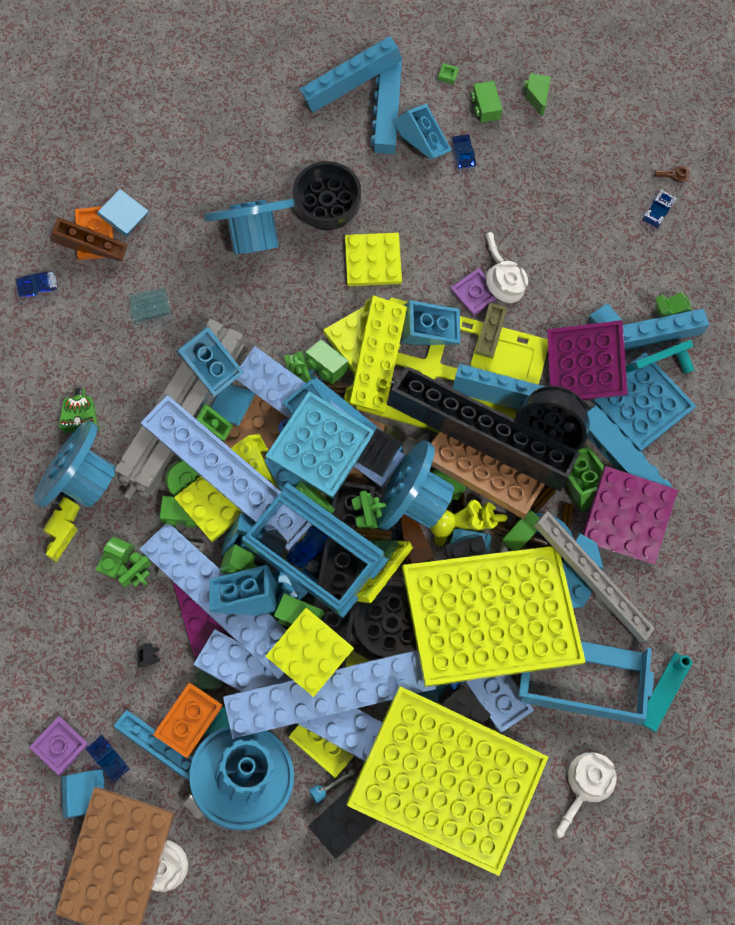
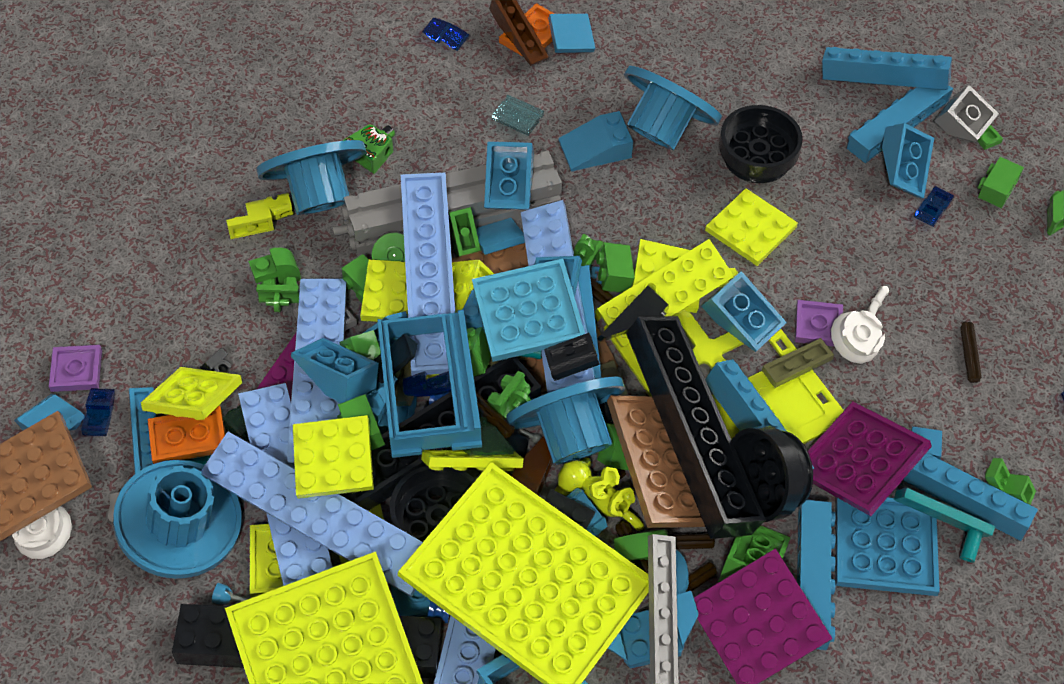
camera: 45 degrees right, 15 degrees down
(161, 691) = (191, 393): none -> neon yellow plate
(222, 281) = (597, 142): none -> dark azure slope
(380, 381) = (646, 304): none -> black slope
(425, 69) = (966, 115): none -> light grey slope
(573, 235) = (970, 352): none -> dark brown axle

